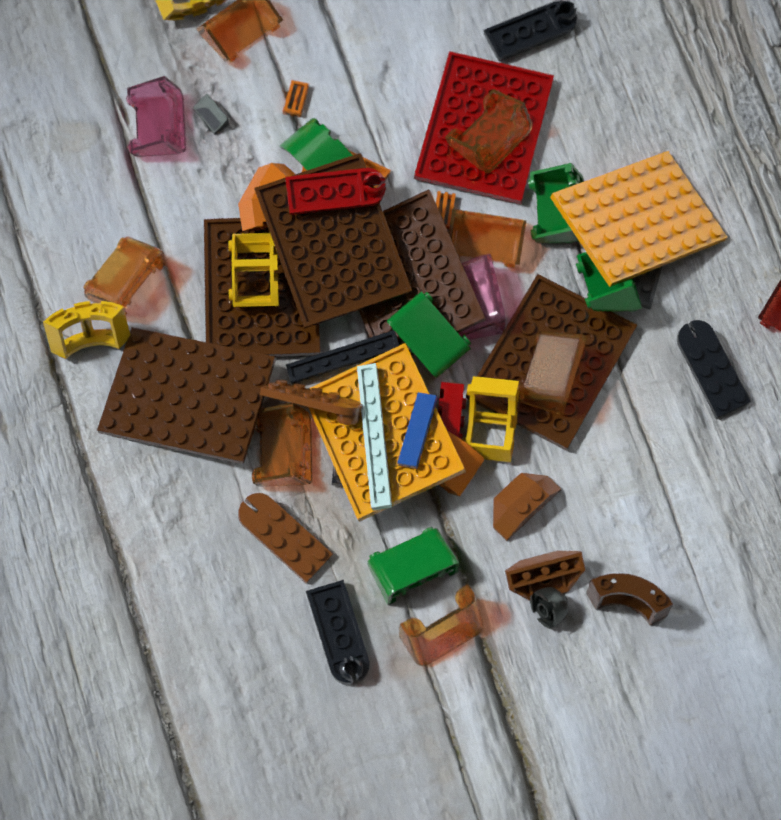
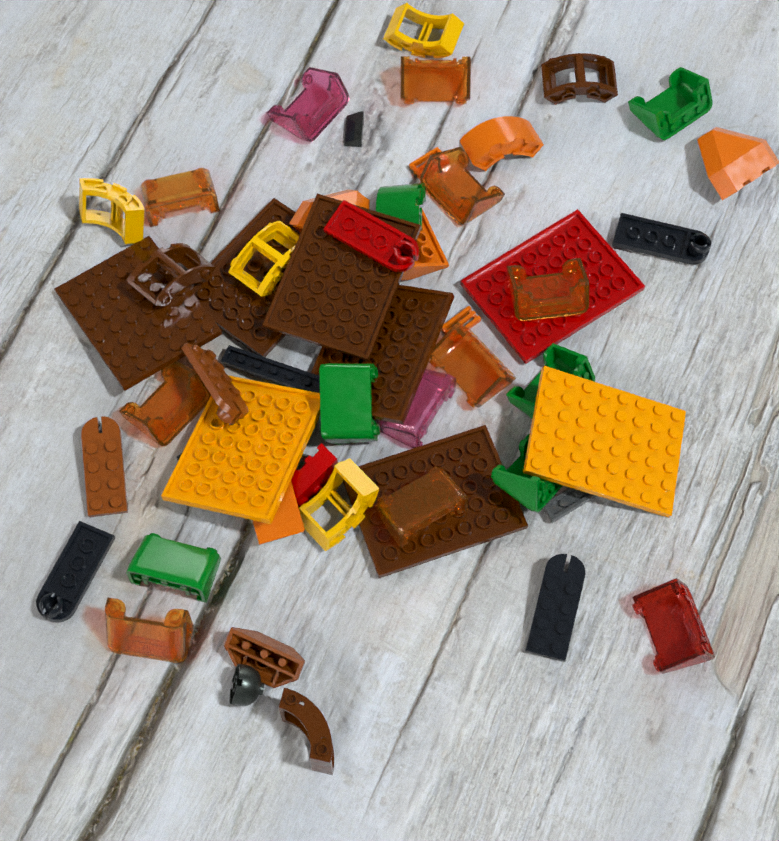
camera: 45 degrees right, 5 degrees down
(190, 327) = (198, 271): none -> reddish brown window
(334, 38) = (498, 137): none -> orange panel
(340, 103) = (456, 188): none -> clear orange windscreen
(374, 437) = (230, 444): light aqua plate -> none
(417, 430) = (265, 464): blue tile -> none
(521, 501) = (305, 588): dark orange wedge -> none

